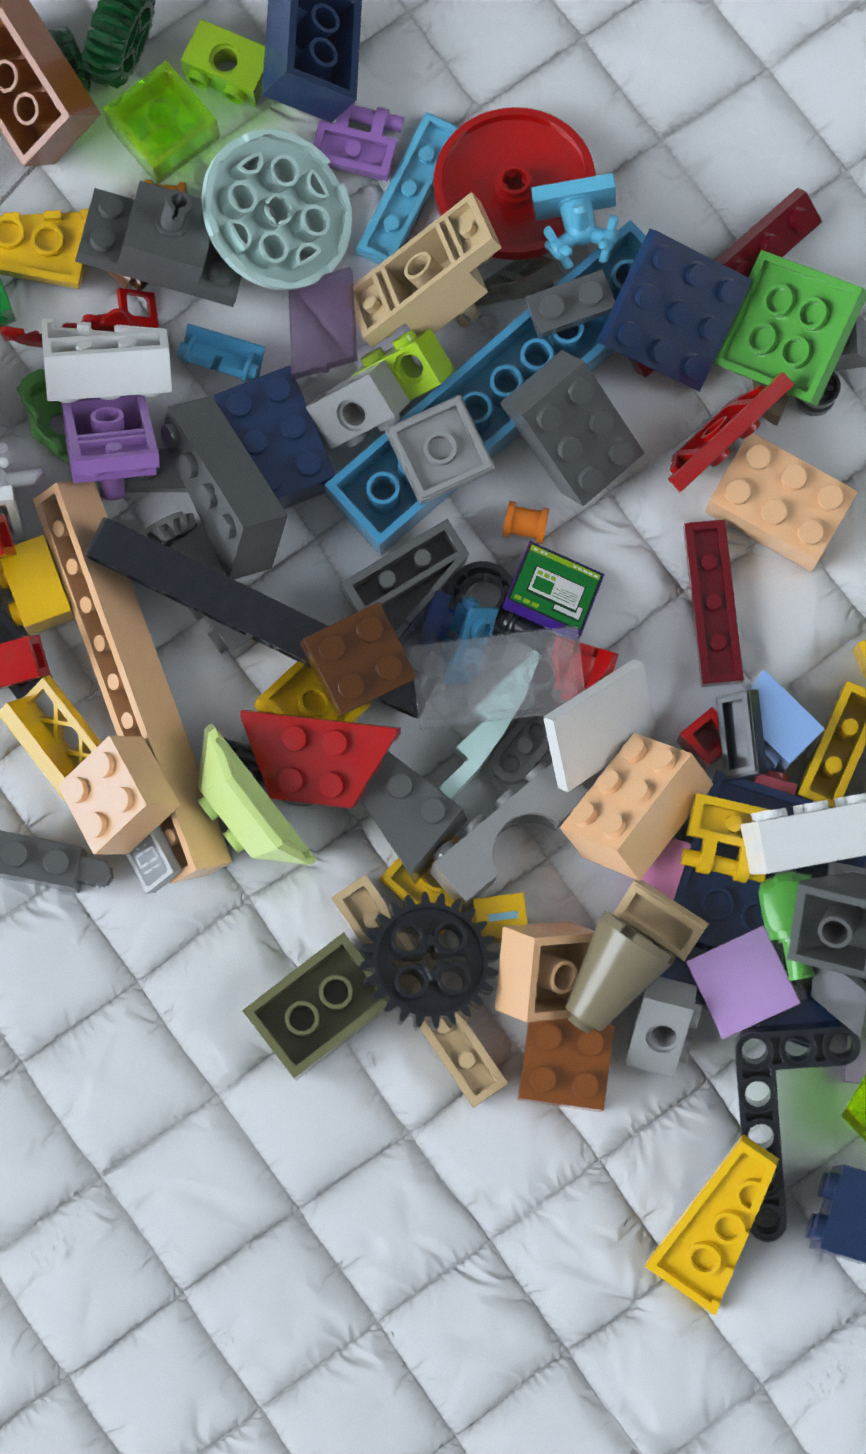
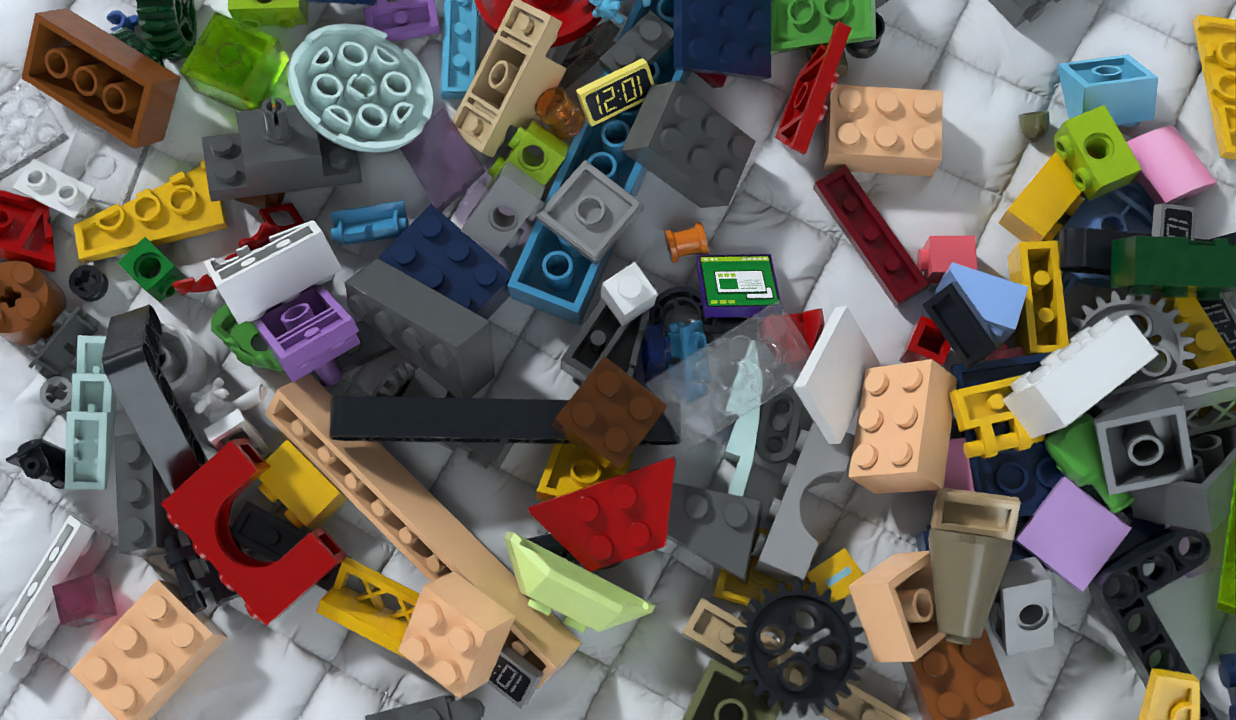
camera: 20 degrees left, 5 degrees down
(73, 20) = (117, 17): none -> blue hand
(435, 551) = (628, 294): none -> white brick
(459, 334) = (560, 113): none -> clear orange wheel
(524, 340) = (615, 92): none -> tile
(779, 658) = (942, 251): none -> coral brick

